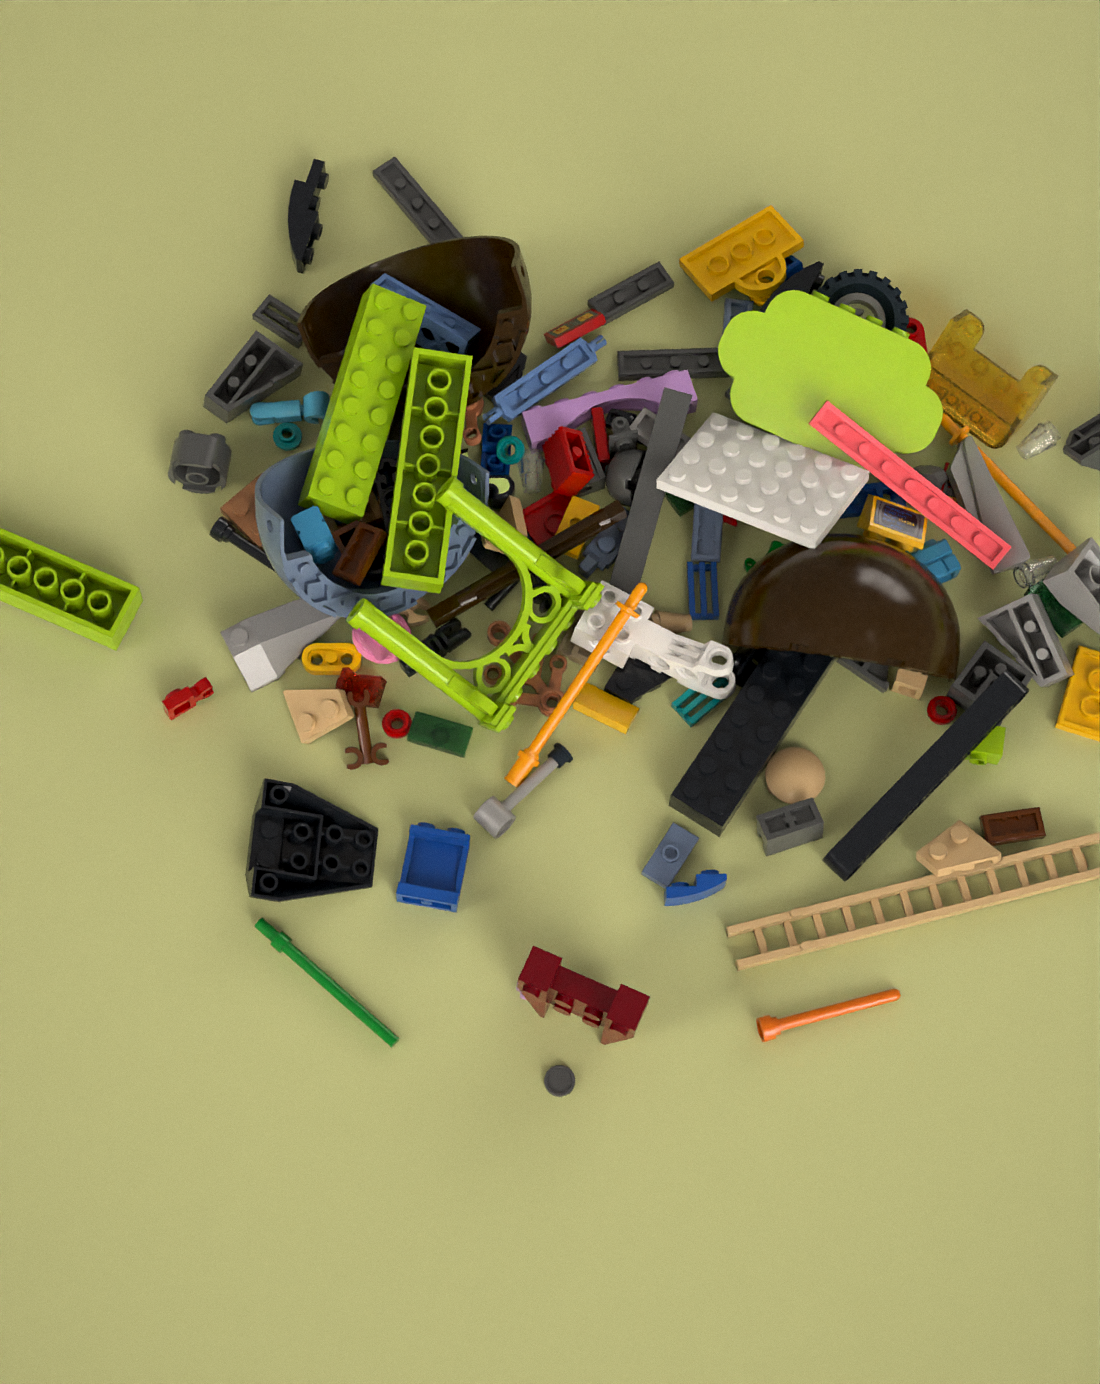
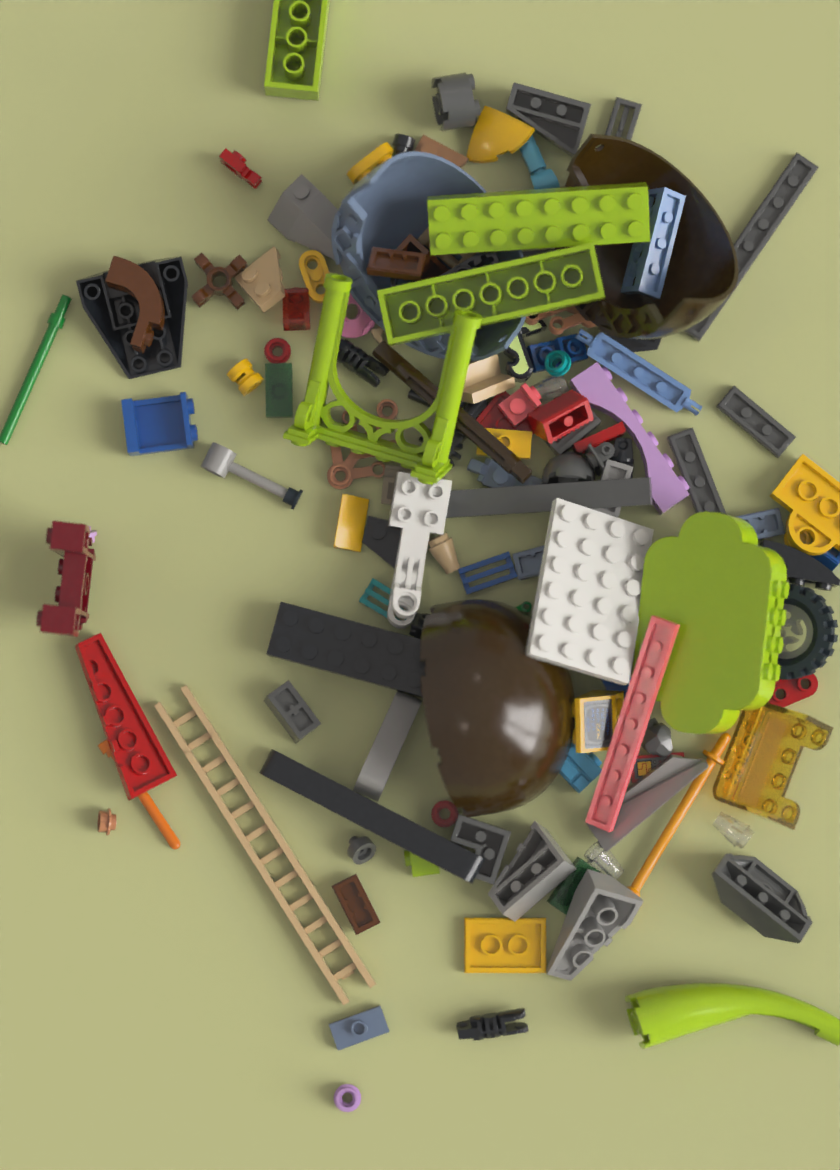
camera: 75 degrees right, 15 degrees up
(229, 555) = (369, 162): none -> yellow plate
(250, 435) = (495, 135): none -> yellow brick
(287, 443) = (510, 175): teal plate -> none
(294, 826) = (135, 281): none -> reddish brown arch
(304, 214) = (718, 108): black slope -> none
(315, 534) = (403, 219): dark azure brick -> none
(322, 748) = (209, 289): none -> reddish brown pin
(367, 753) = (242, 332): reddish brown bar -> none
(420, 761) = (245, 377): none -> yellow wheel
(529, 756) = (279, 471): light orange bar -> none
(540, 497) = (520, 404): none -> coral bracket
(559, 1081) = (13, 587): dark grey piece -> none
(575, 328) = (700, 382): red tile -> none
(670, 855) = (235, 618): sand blue plate -> none
(705, 885) = (215, 654): blue slope -> none
(761, 1001) = (129, 735): none -> red wing
(794, 775) = (342, 703): tan dish -> none
(849, 1058) = (106, 821): none -> nougat plate
(858, 739) = (387, 745): none -> light grey beam
(955, 803) = (361, 849): none -> dark grey tile
(956, 850) = (316, 861): tan wing -> none

